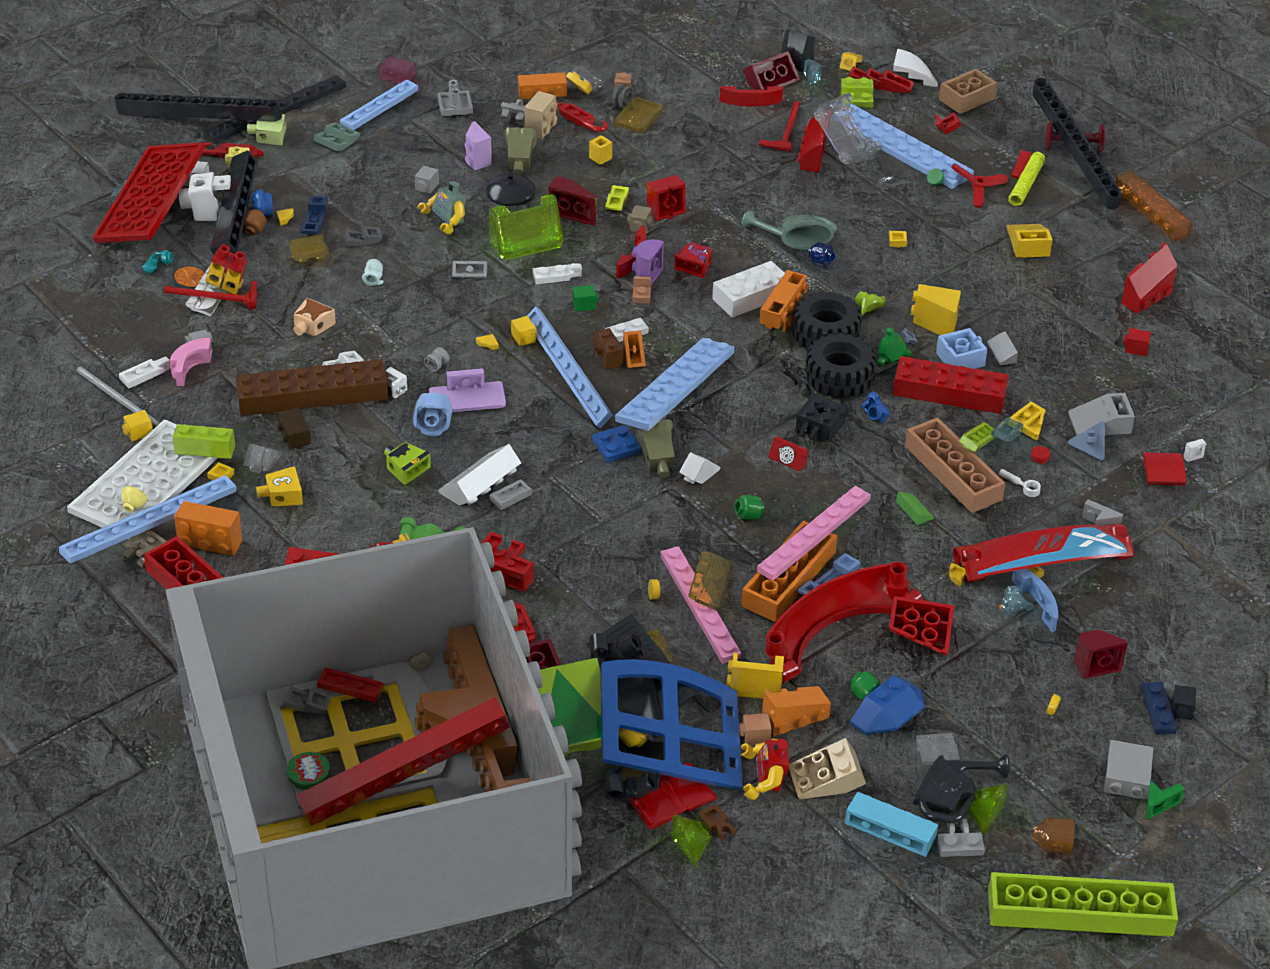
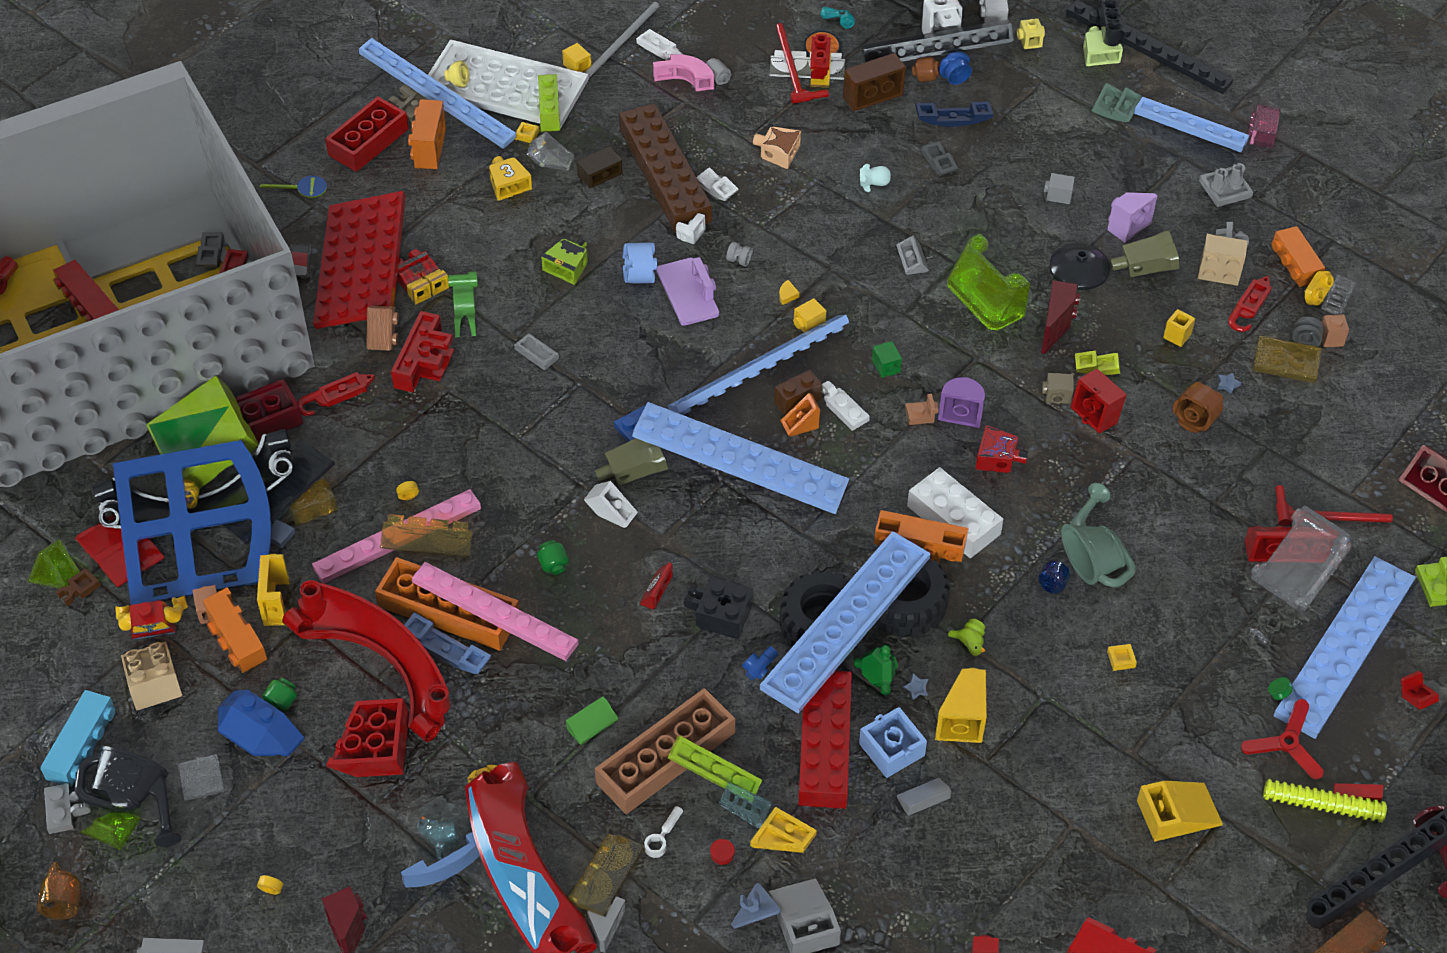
camera: 80 degrees right, 10 degrees up
(223, 149) = (1054, 29): red plate -> none
(263, 248) = (874, 82): none -> reddish brown brick
(284, 215) = (953, 91): yellow tile -> none
(308, 247) = (895, 119): clear yellow bracket -> none
(308, 770) = (122, 268): tile -> none
(447, 204) = (1007, 215): torso -> none
(481, 476) = (556, 321): white slope -> none
(556, 273) = (930, 329): white hinge -> none
(625, 263) = (1003, 397): red slope -> none
(653, 145) = (1228, 382): none -> sand blue piece
(683, 156) = (1198, 407): none -> dark orange brick
(751, 98) = (1386, 484): red slope -> none
(866, 341) = (844, 622): none -> light blue plate
(1059, 511) = (605, 873): none -> clear yellow windscreen

